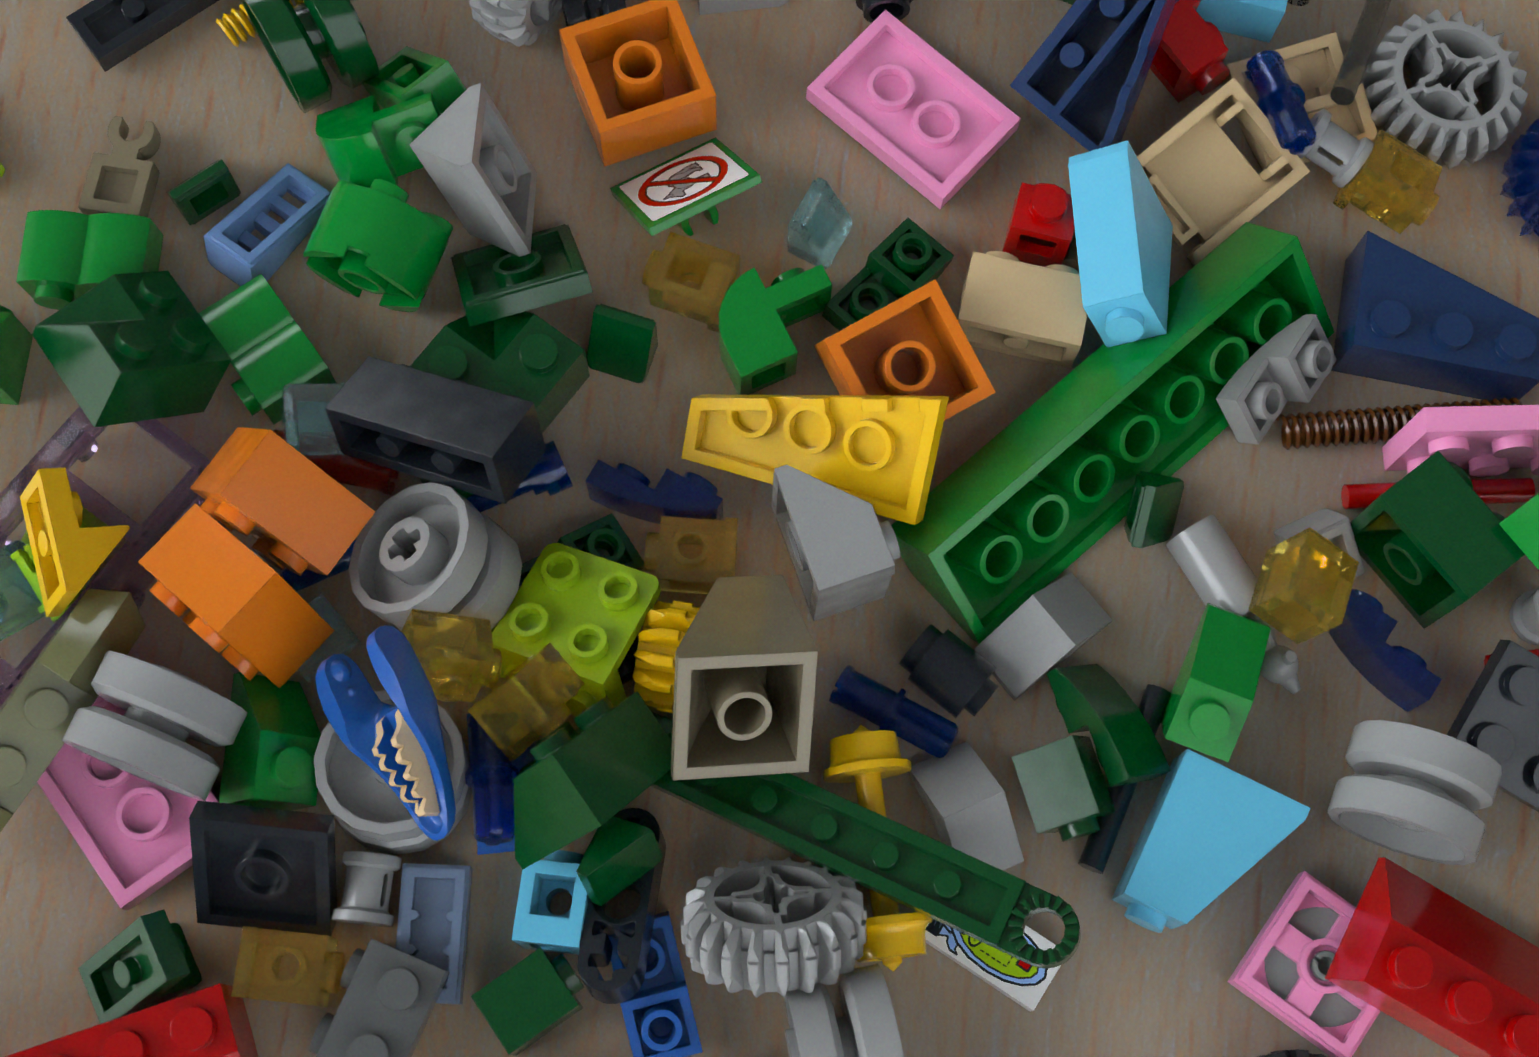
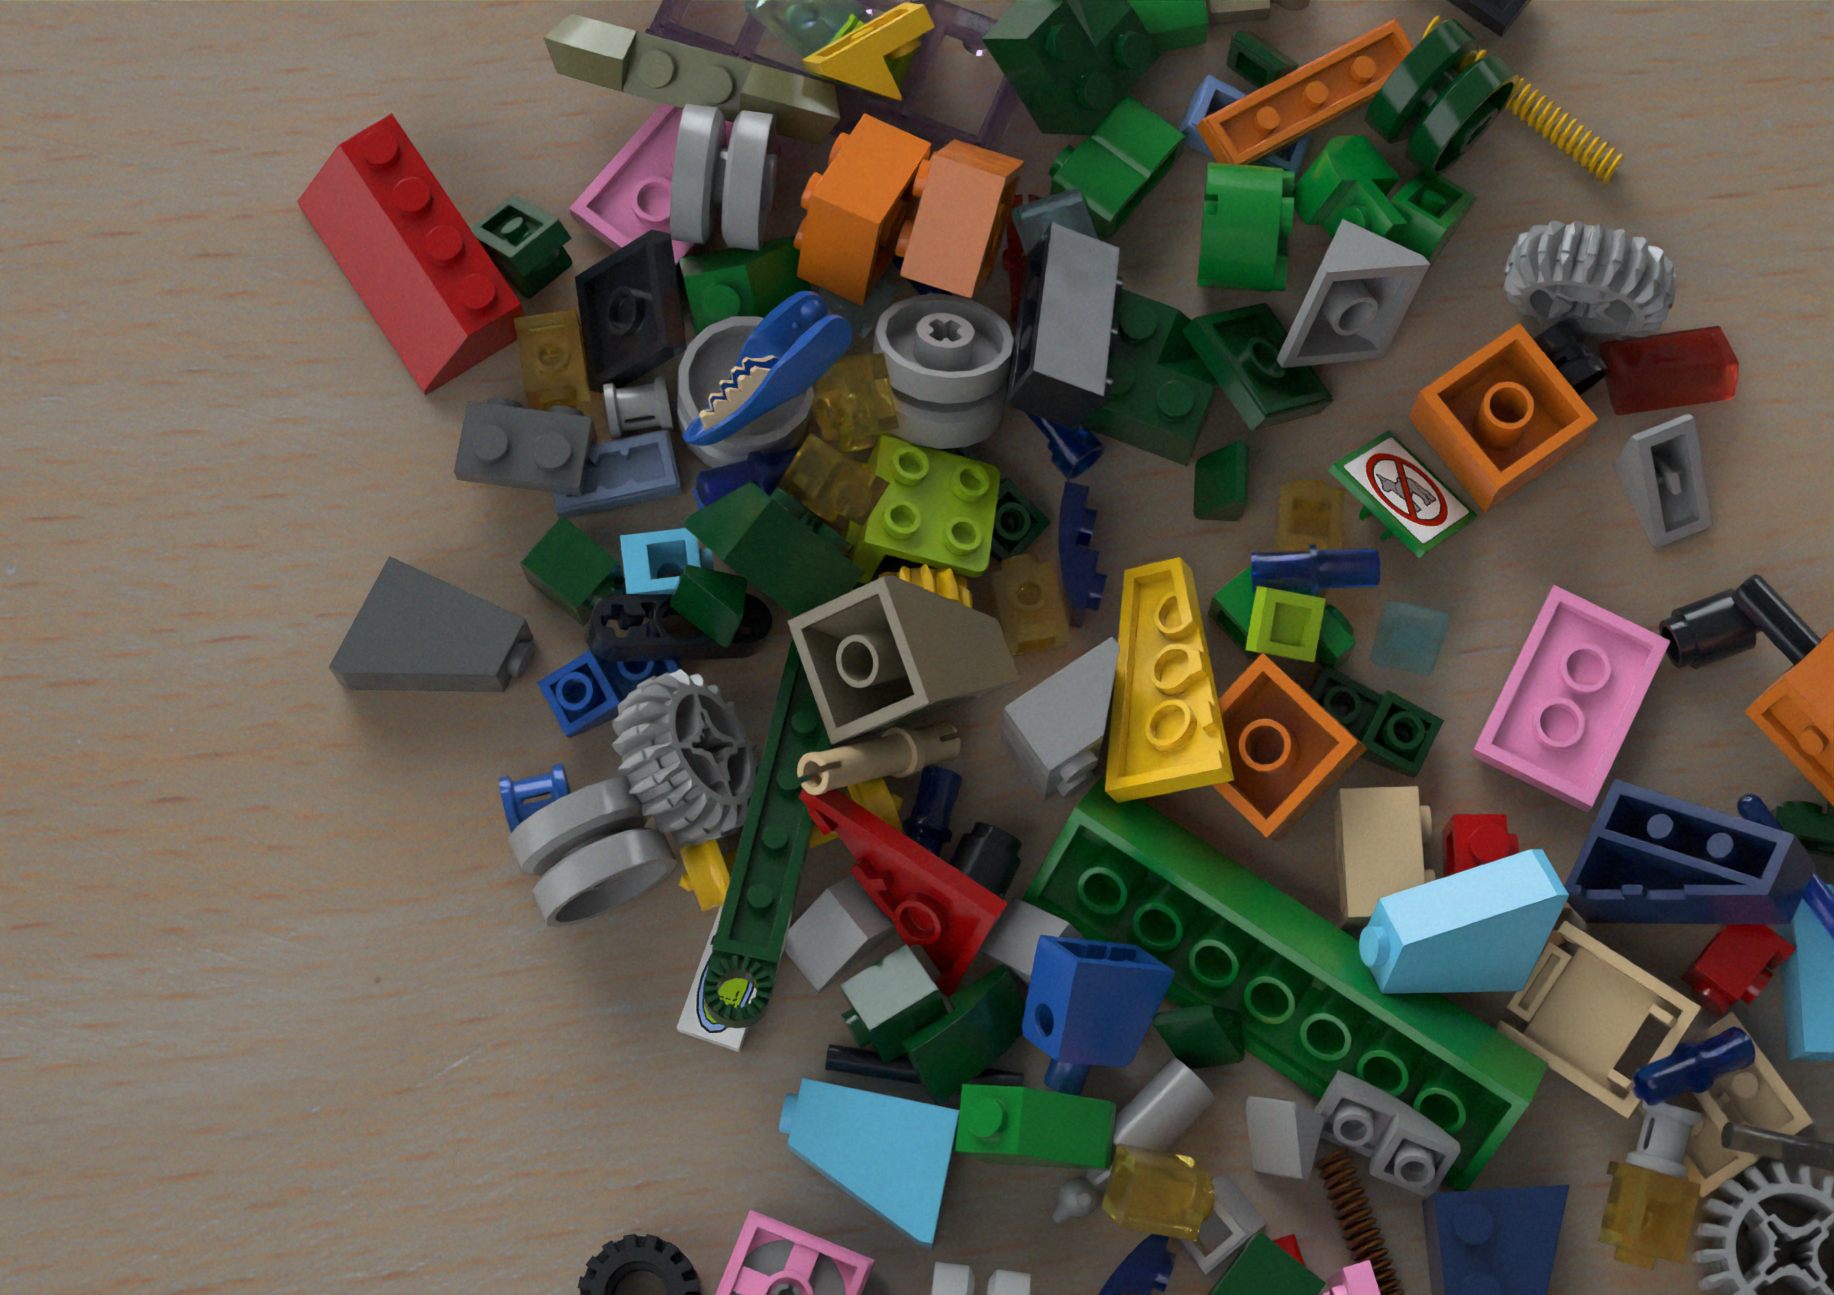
camera: 80 degrees right, 0 degrees up
(260, 153) = (1305, 98): none -> orange tile
(747, 276) = (1315, 569): none -> clear blue axle
(794, 316) = (1285, 624): none -> lime plate
(831, 749) = (896, 753): none -> tan pin
(964, 732) = (913, 886): none -> red wing
(1112, 598) = (1090, 1005): none -> blue torso
(1263, 466) = (1282, 1137): none -> light grey slope

